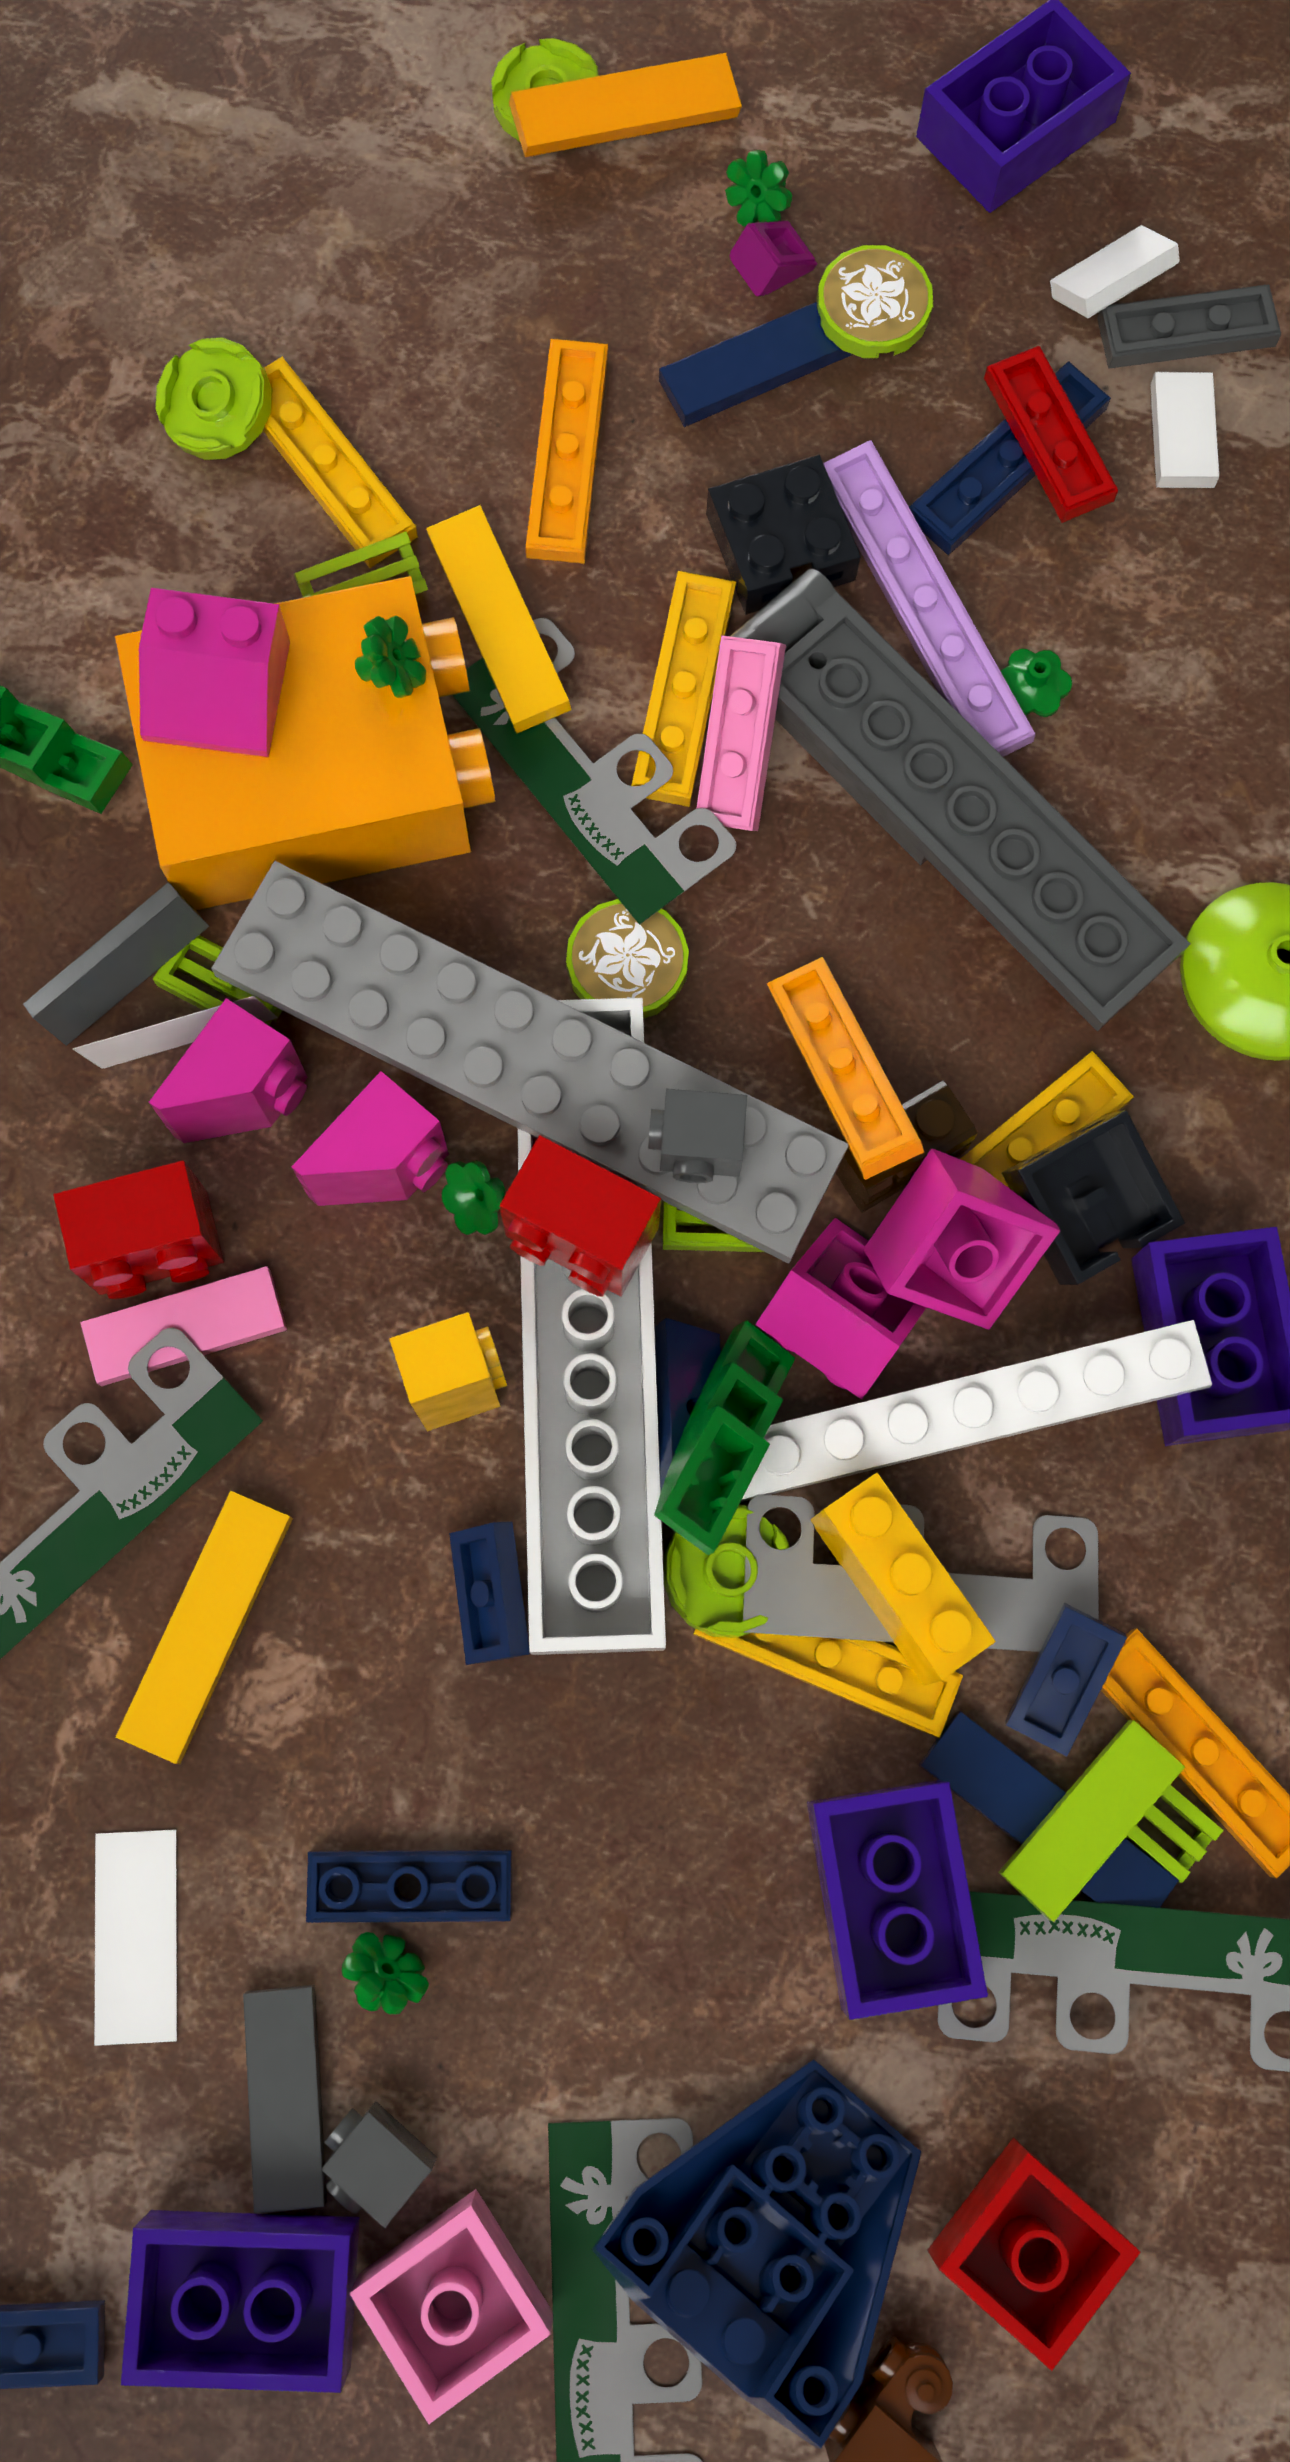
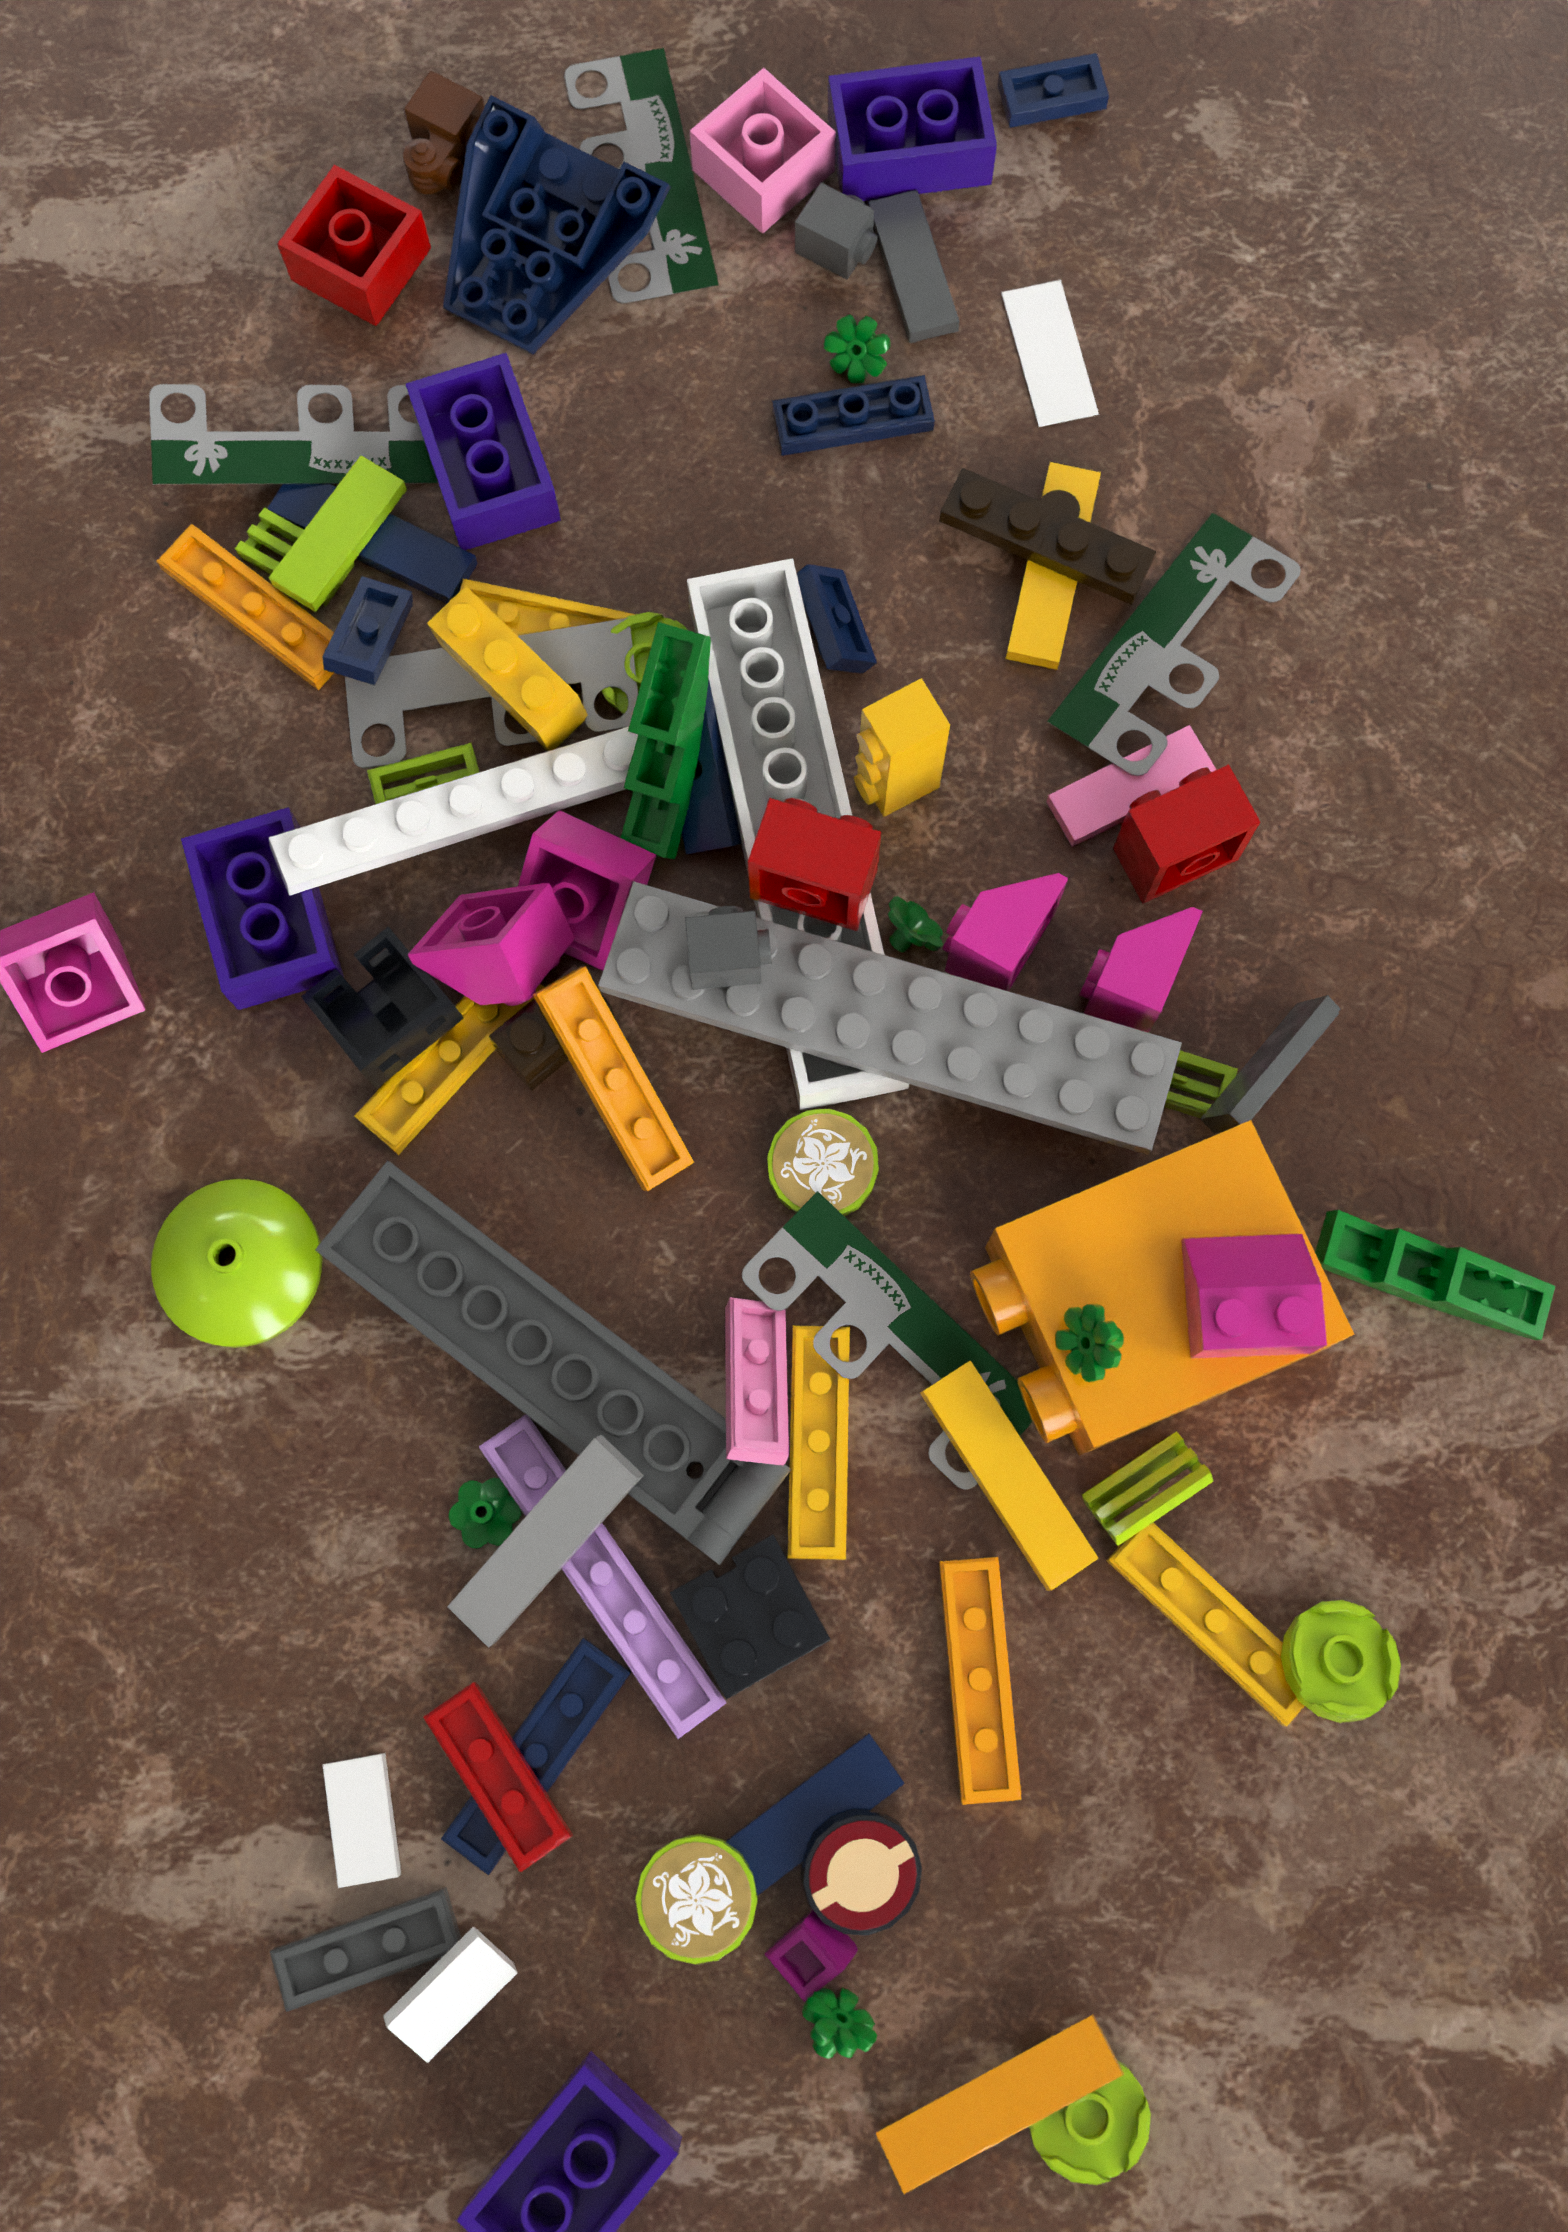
camera: 175 degrees right, 0 degrees up
(161, 1036) = (1210, 1006): white sticker -> none
(203, 1656) = (1047, 534): none -> dark brown hinge
(715, 302) = (861, 1872): none -> tile
(958, 1484) = (421, 765): none -> lime tile
(976, 622) = (545, 1540): none -> light grey tile

